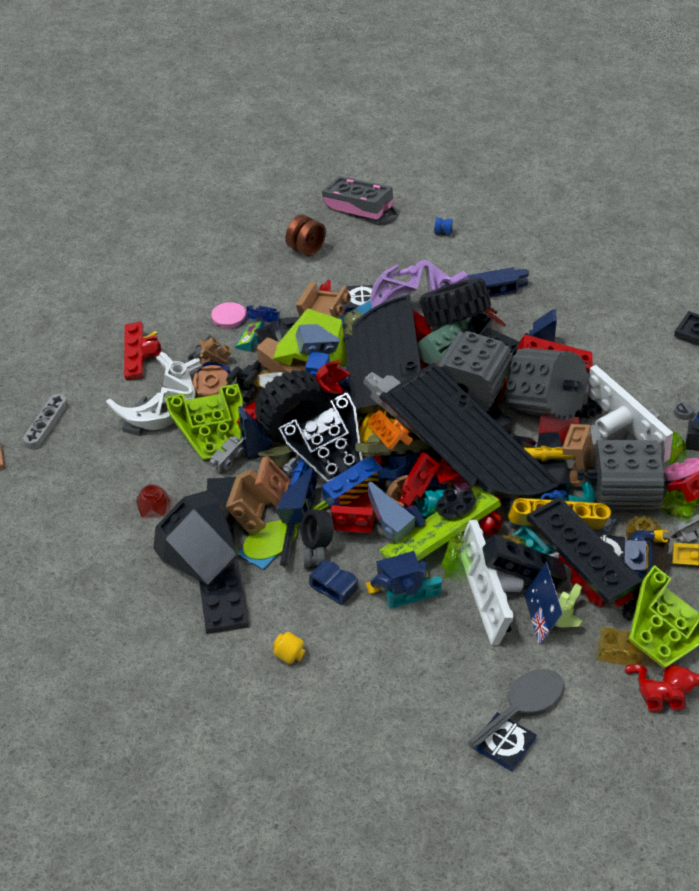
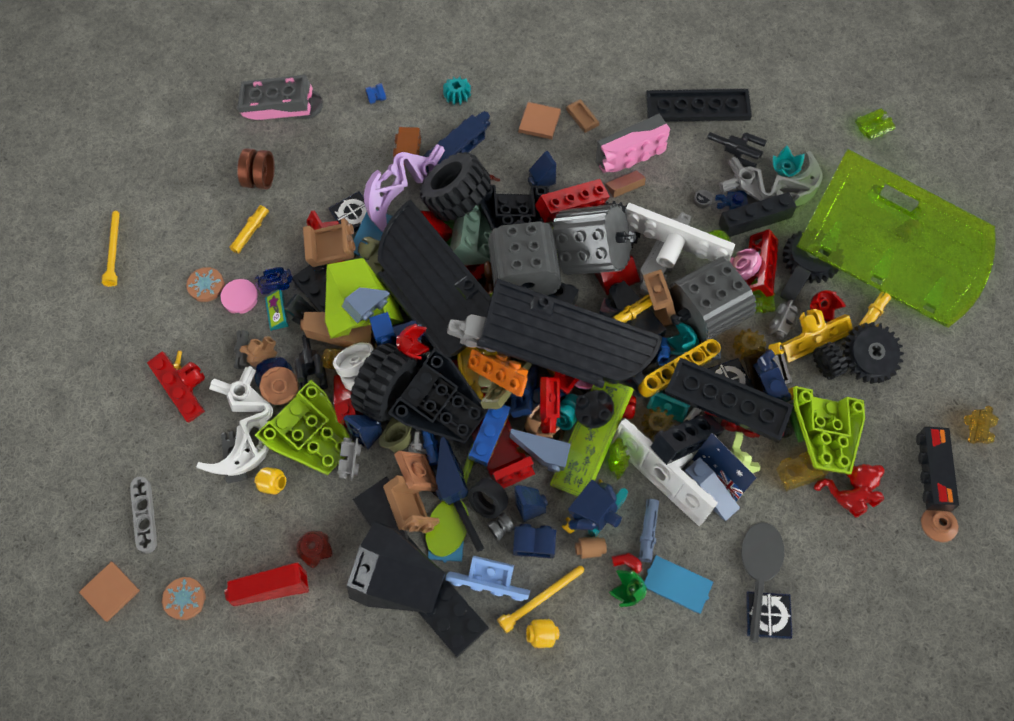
camera: 30 degrees left, 20 degrees up
(30, 488) = (183, 598): none -> nougat tile
(100, 505) = (267, 585): none -> red slope
(141, 263) = (110, 278): none -> yellow piece
(155, 441) = (270, 480): none -> yellow head
(208, 297) = (205, 284): none -> nougat tile
(267, 627) = (508, 621): none -> yellow piece
(277, 272) = (253, 223): none -> yellow pin
(278, 586) = (490, 576): none -> light blue bracket
(349, 546) = (529, 502): none -> dark blue slope
(379, 609) = (590, 547): none -> medium nougat brick
(393, 655) = (631, 590): none -> green piece
(406, 636) = (629, 560): none -> red arm
(413, 510) = (564, 437): dark blue tile -> none
(435, 628) = (649, 526): none -> sand blue pin
(437, 677) = (678, 584): none -> dark azure piece
(447, 264) = (408, 141): none -> dark orange brick
(515, 249) = (457, 90): none -> teal gear
(523, 621) = (712, 485): none -> slope
(572, 296) = (539, 120): none -> nougat tile
(615, 309) = (582, 116): none -> medium nougat tile
(620, 371) = (625, 183): none -> medium nougat slope
(642, 341) = (632, 144): none -> bright pink piece

